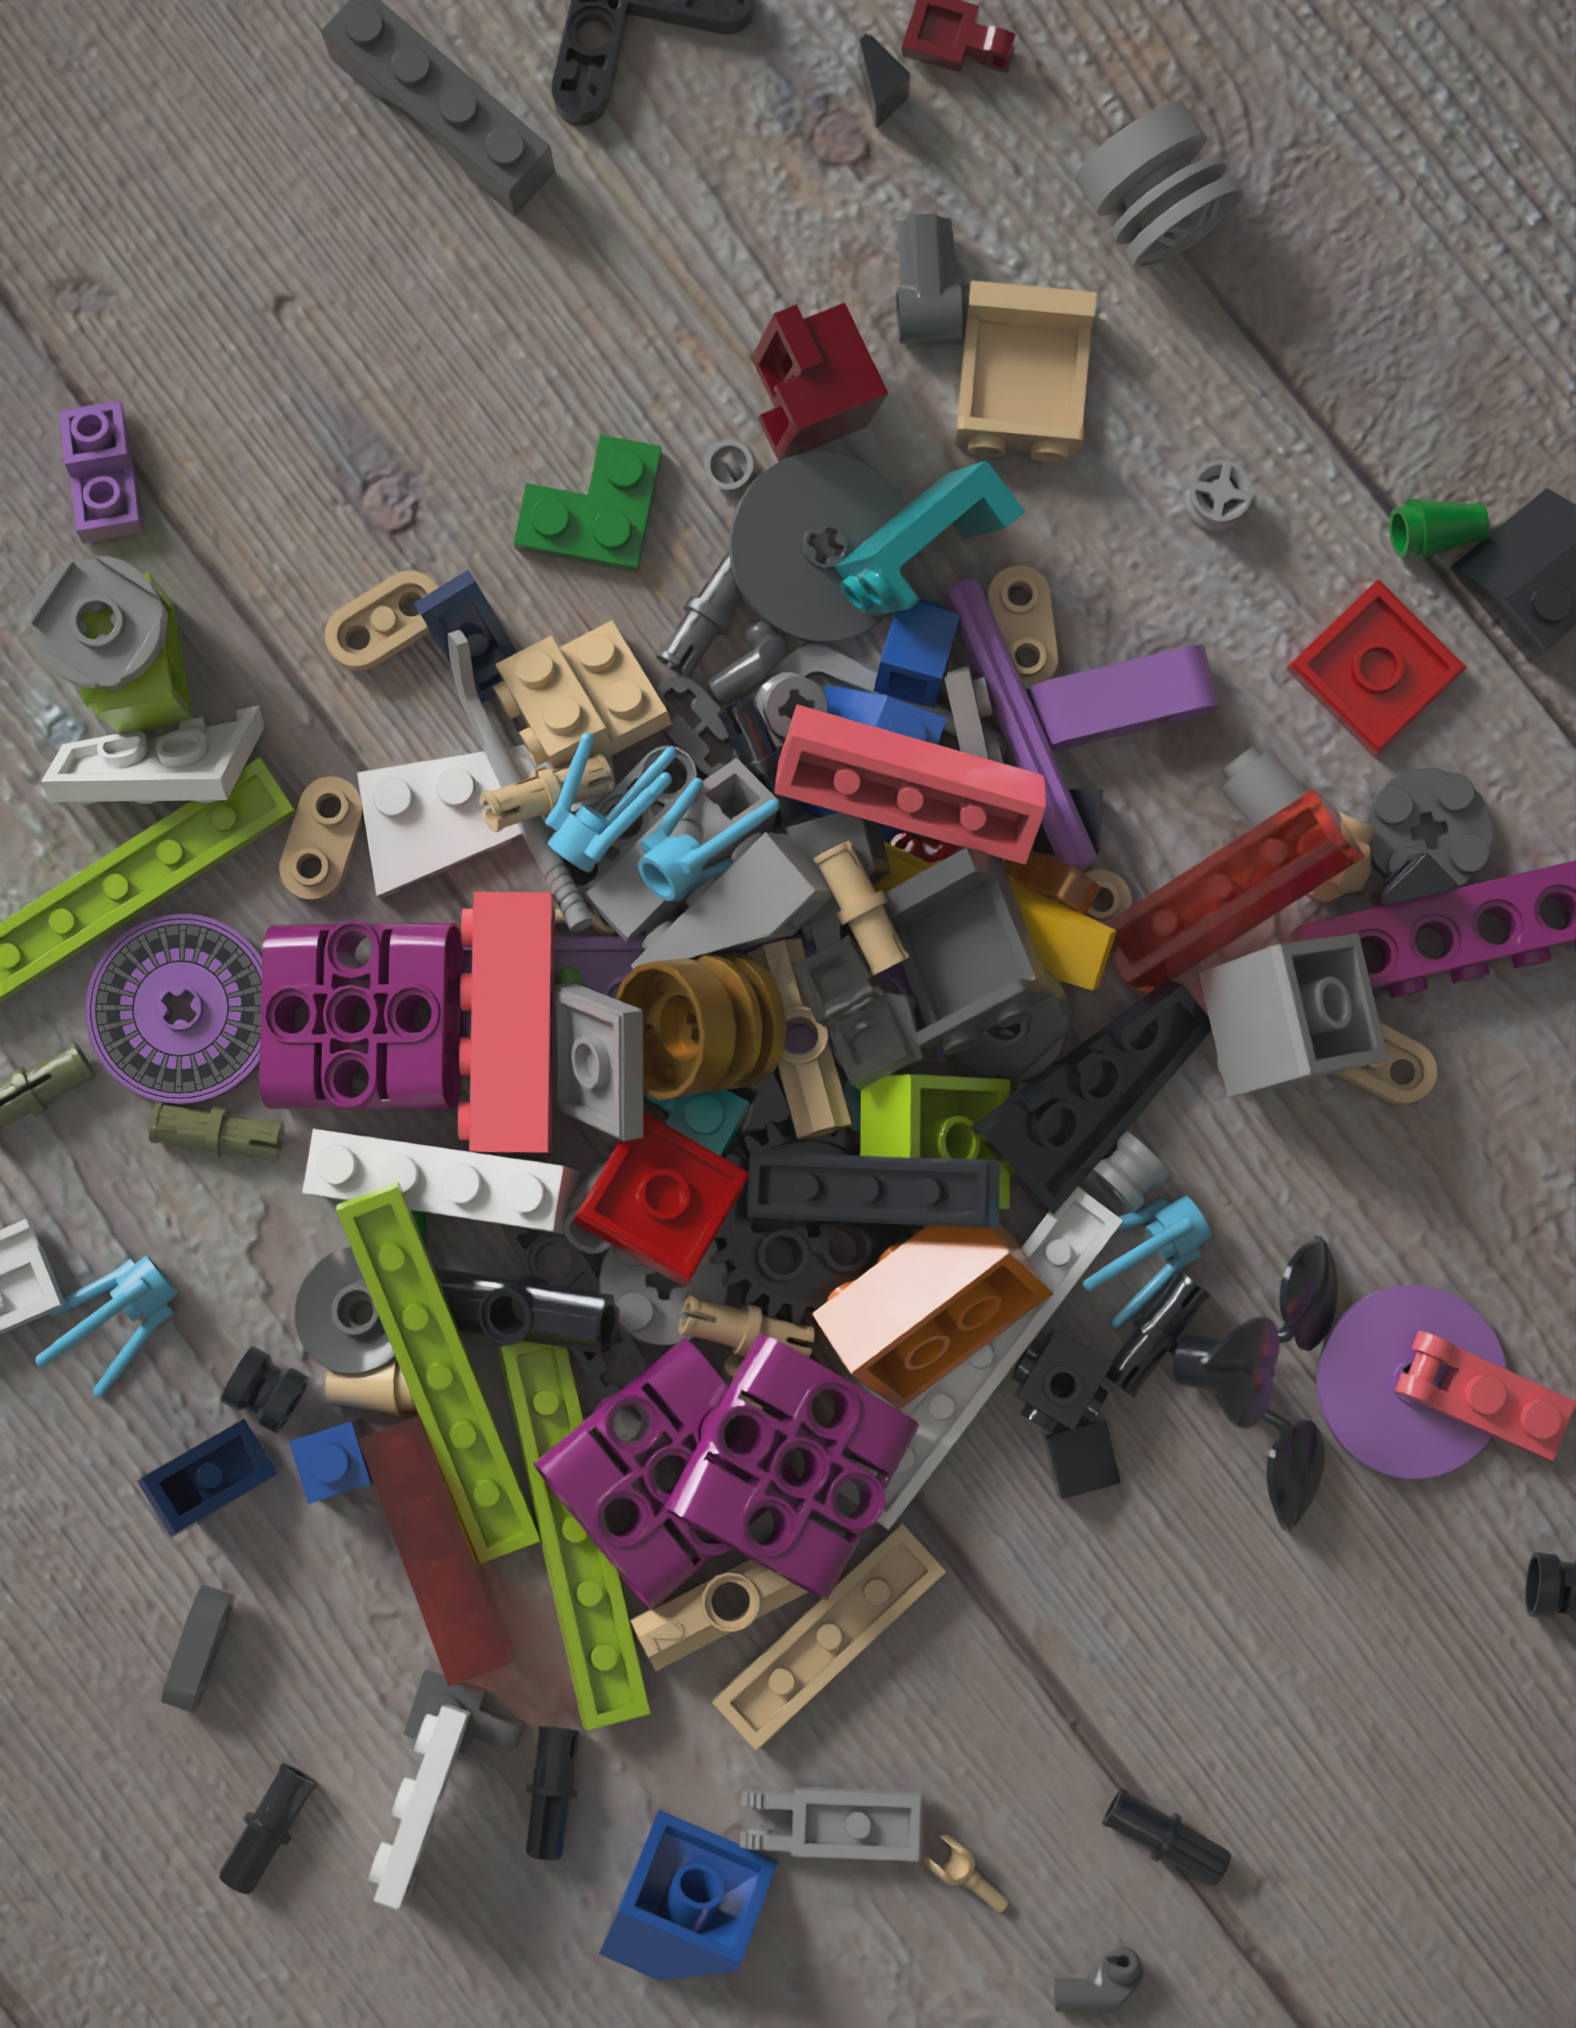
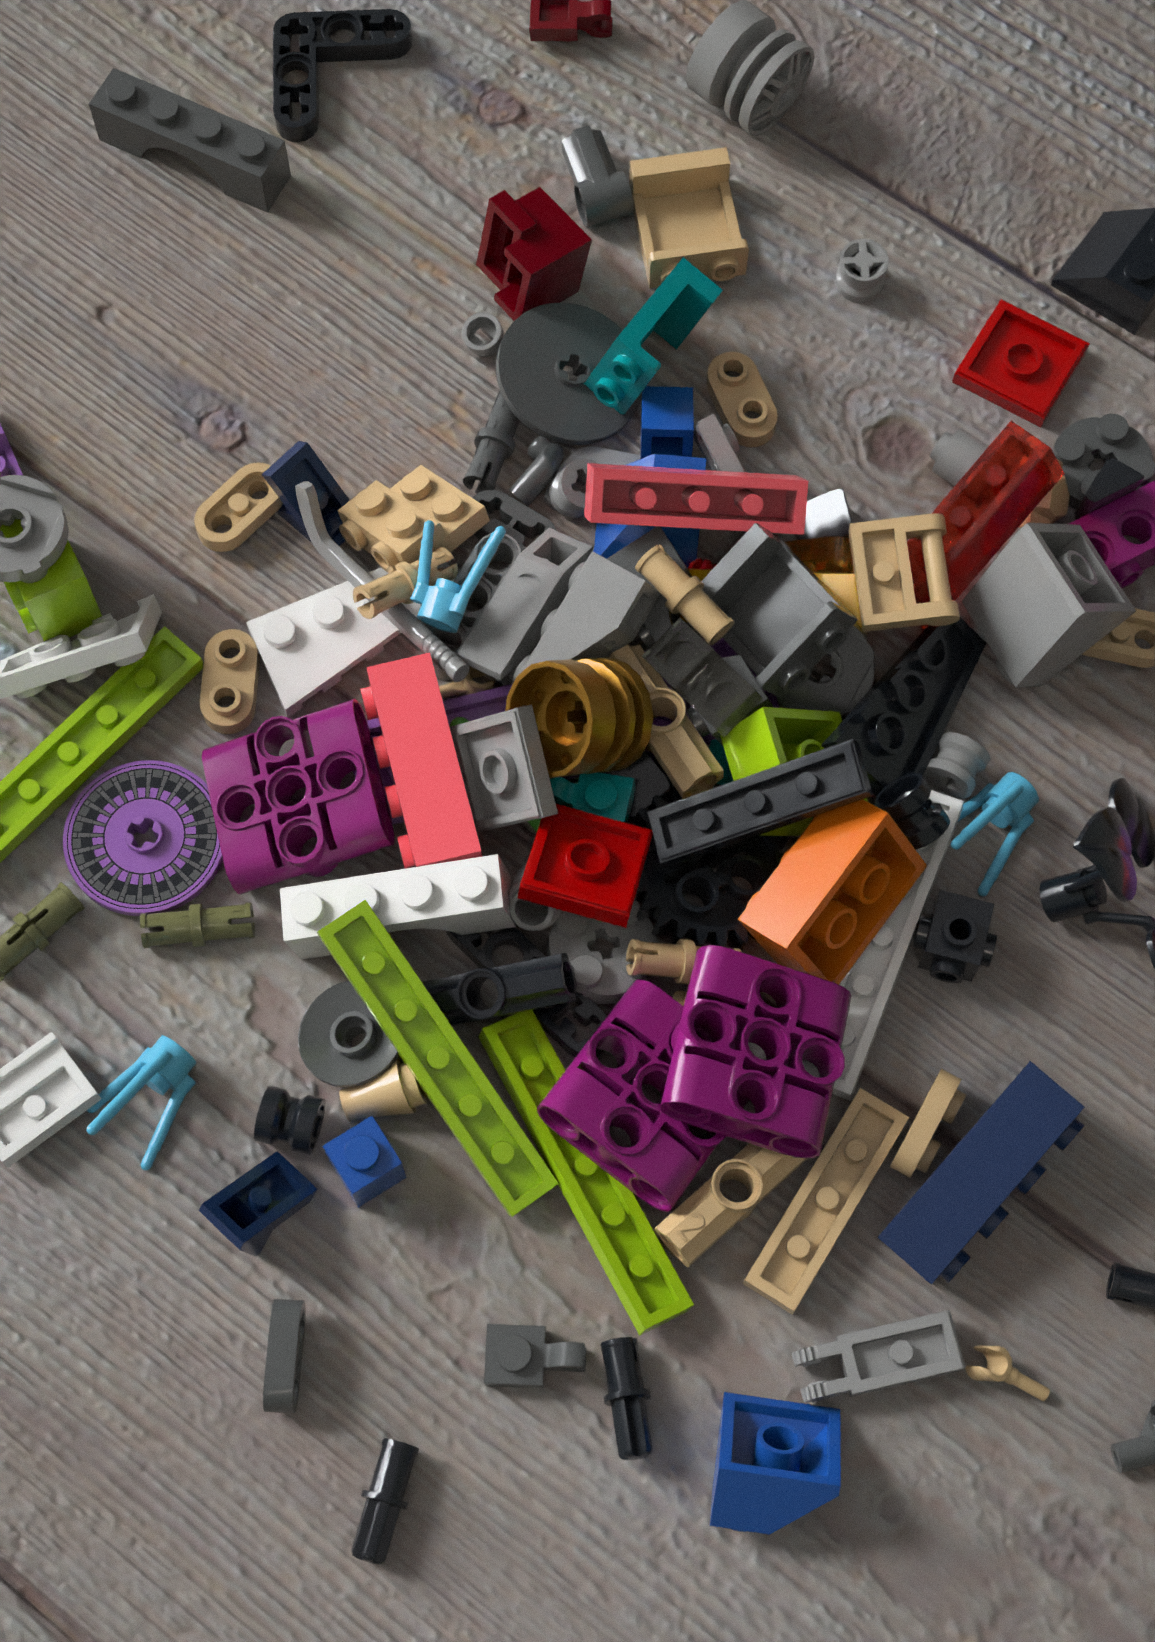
camera: 15 degrees left, 15 degrees down
(415, 1805) = (514, 1427): white wing -> none
(437, 1553) = (473, 1212): clear red brick -> none
(597, 527) = (392, 403): green plate -> none
(676, 864) = (525, 599): medium azure plant -> none
(758, 752) = (559, 516): black pin -> none
(883, 79) = (520, 53): black slope -> none
(946, 1604) = (940, 1104): none -> tan plate
(1008, 1660) = (981, 1173): none -> dark blue wedge
(1019, 720) = (757, 448): medium lavender axle -> none
(1058, 1239) = (912, 810): none -> black wheel
(1081, 1459) = (989, 1003): black slope -> none
(1107, 939) = (885, 572): none -> tan plate
(1125, 697) = (836, 424): medium lavender beam -> none
(1156, 1333) = (1019, 885): black pin -> none
(1433, 527) = (1030, 253): green cone -> none

